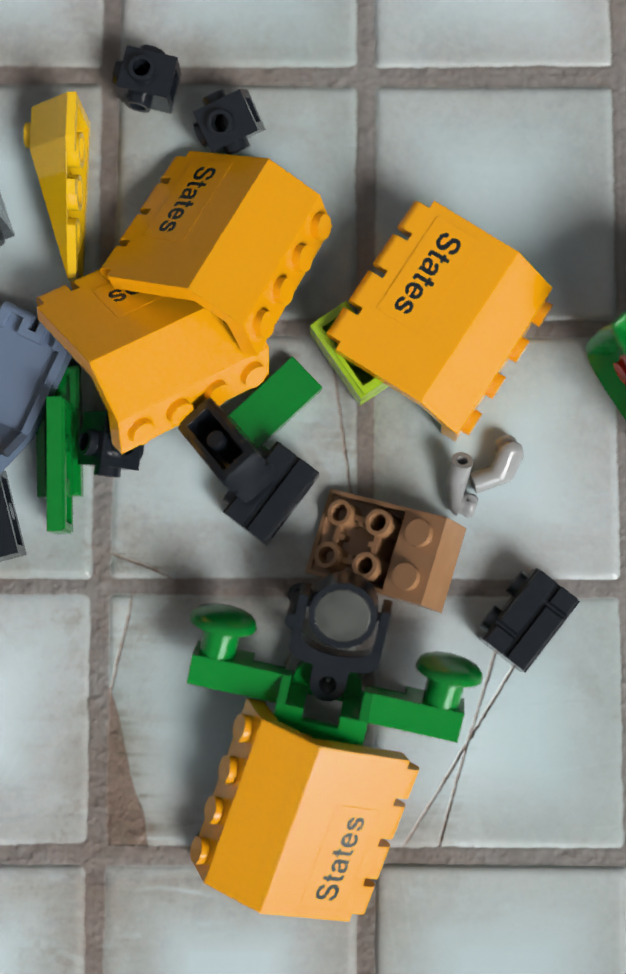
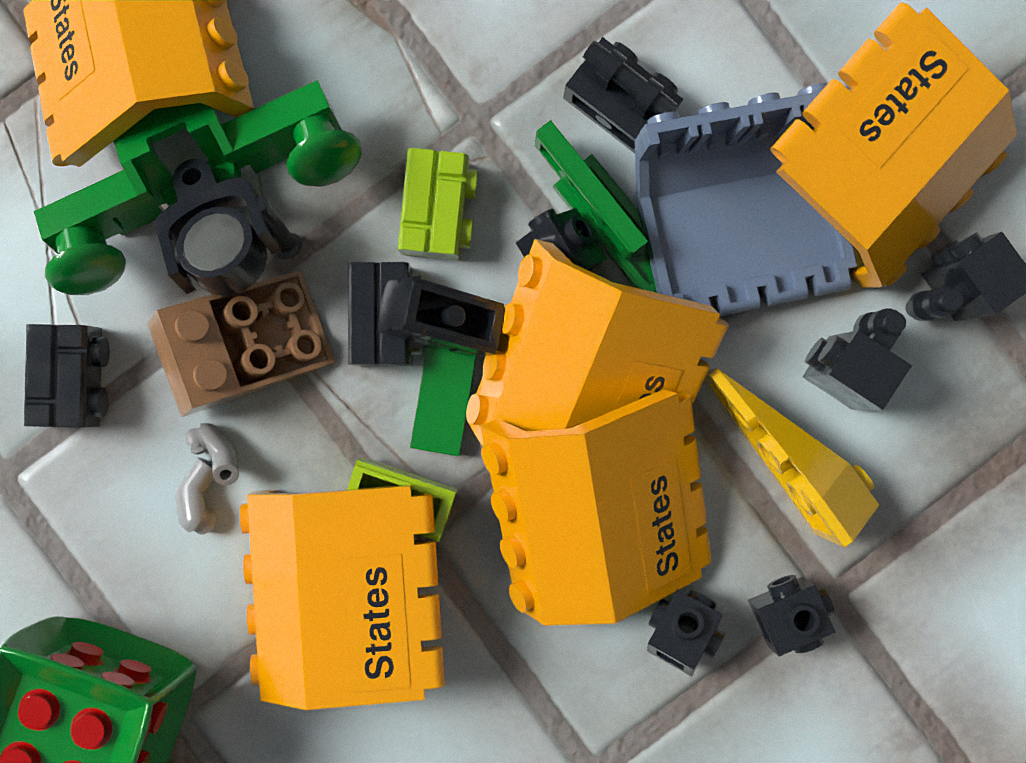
camera: 140 degrees right, 5 degrees up
(173, 541) = (435, 204): none -> lime brick

